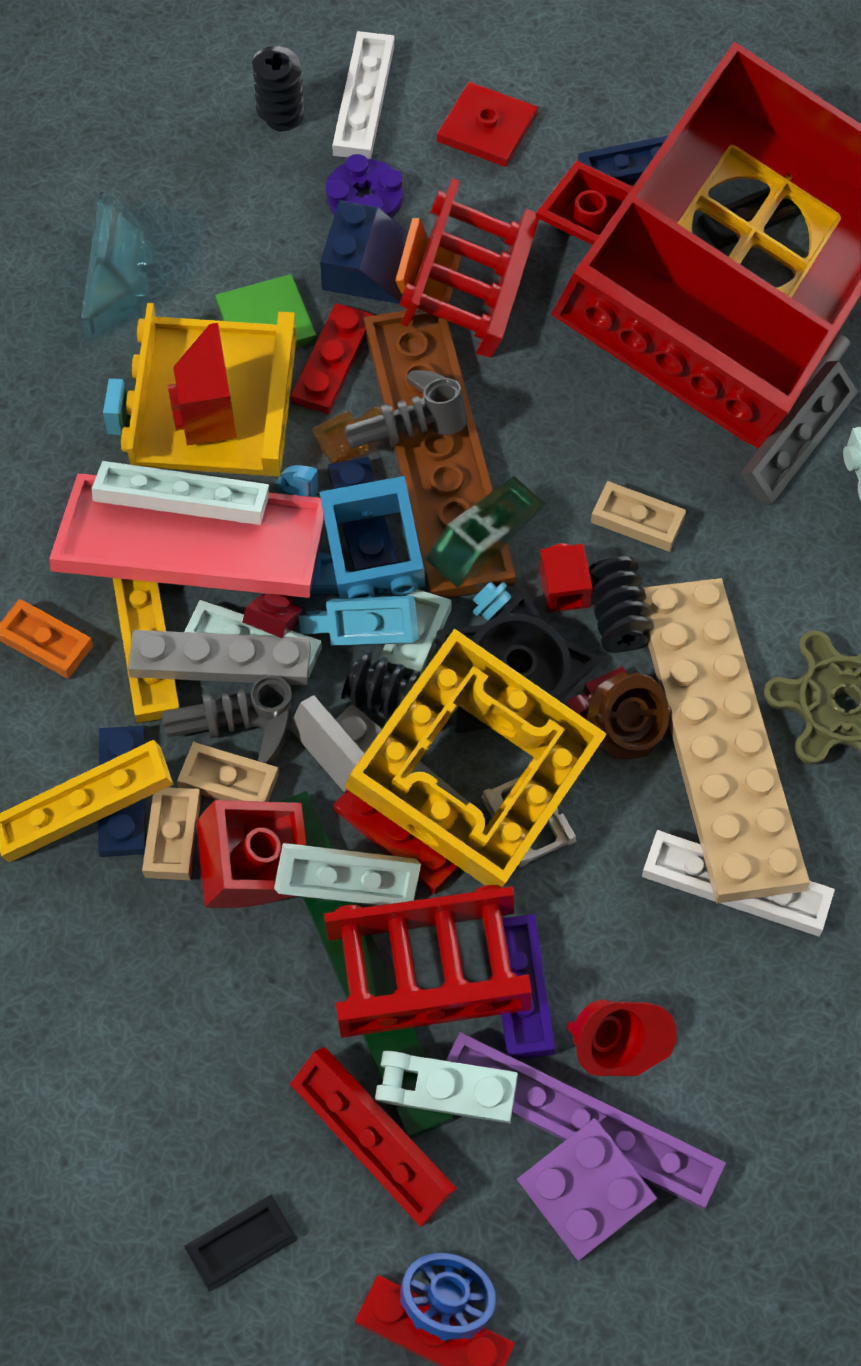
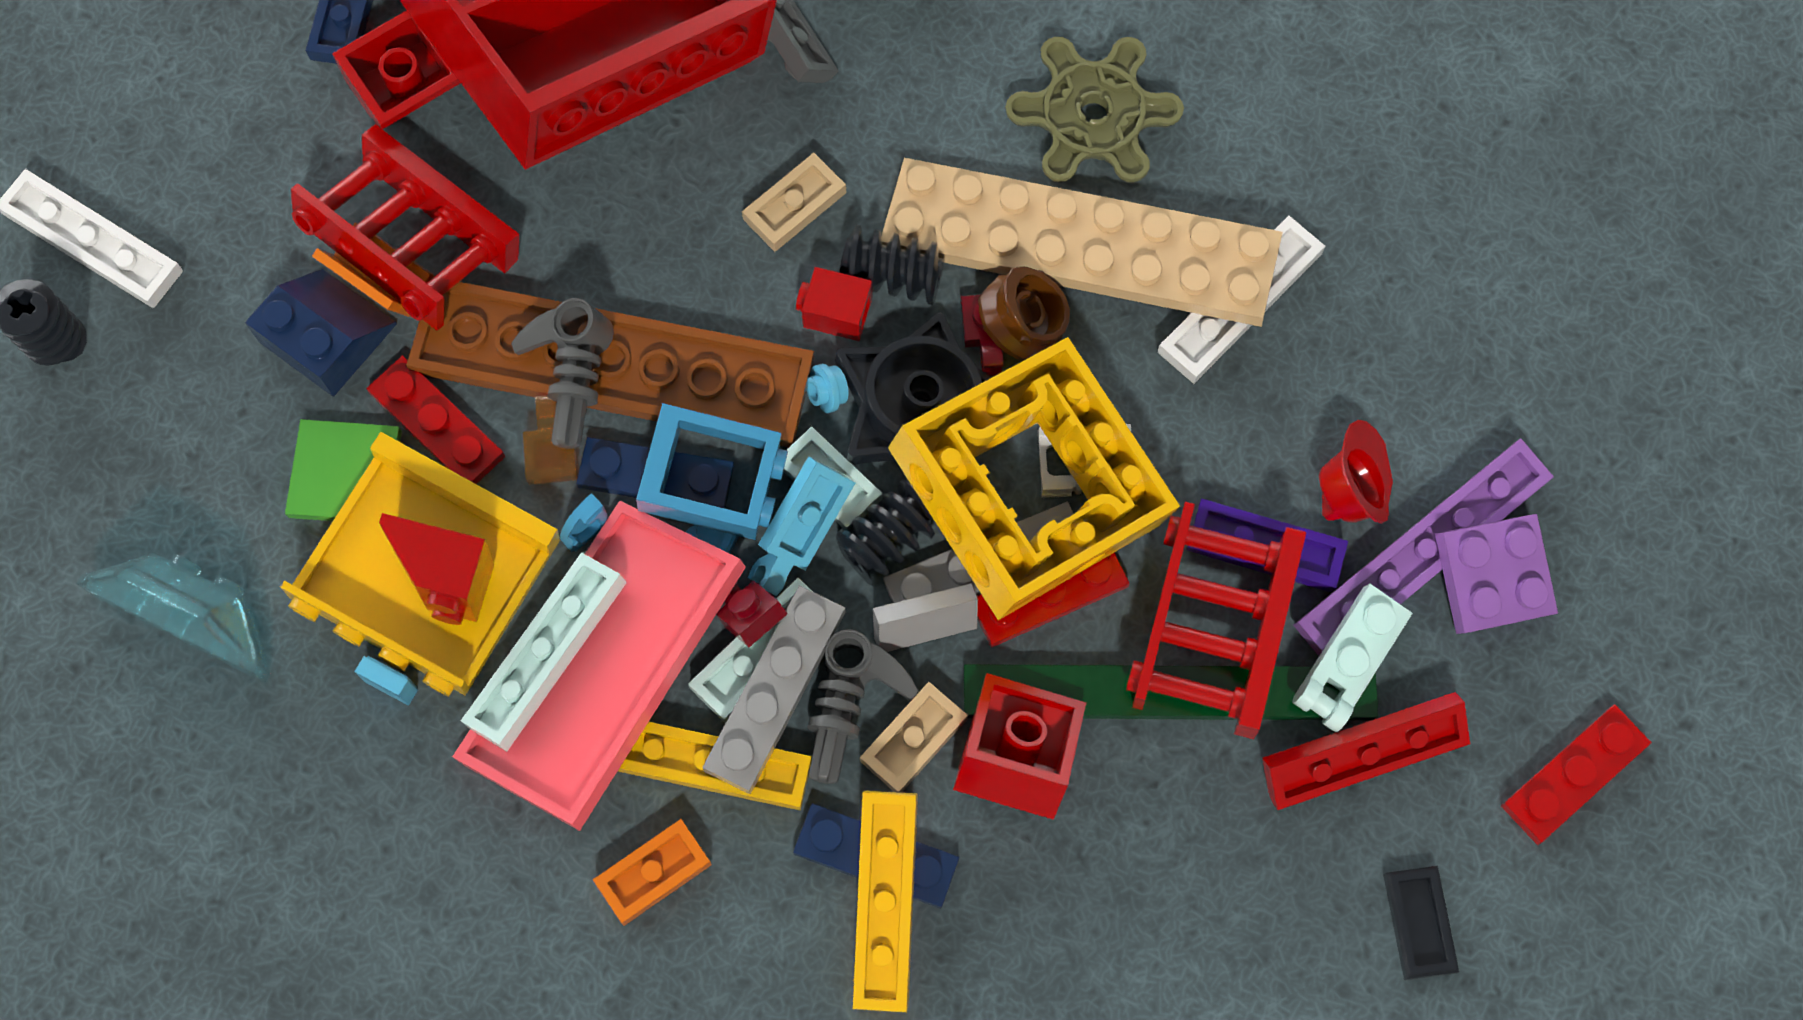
camera: 65 degrees left, 10 degrees up
(172, 834) = (958, 822): tan plate -> none
(346, 875) = (1092, 660): light aqua plate -> none
(370, 173) = (205, 277): dark purple plate -> none
(447, 1296) = (1553, 745): blue wheel -> none
(483, 531) = (757, 355): clear green slope -> none
(487, 124) = (203, 127): red plate -> none

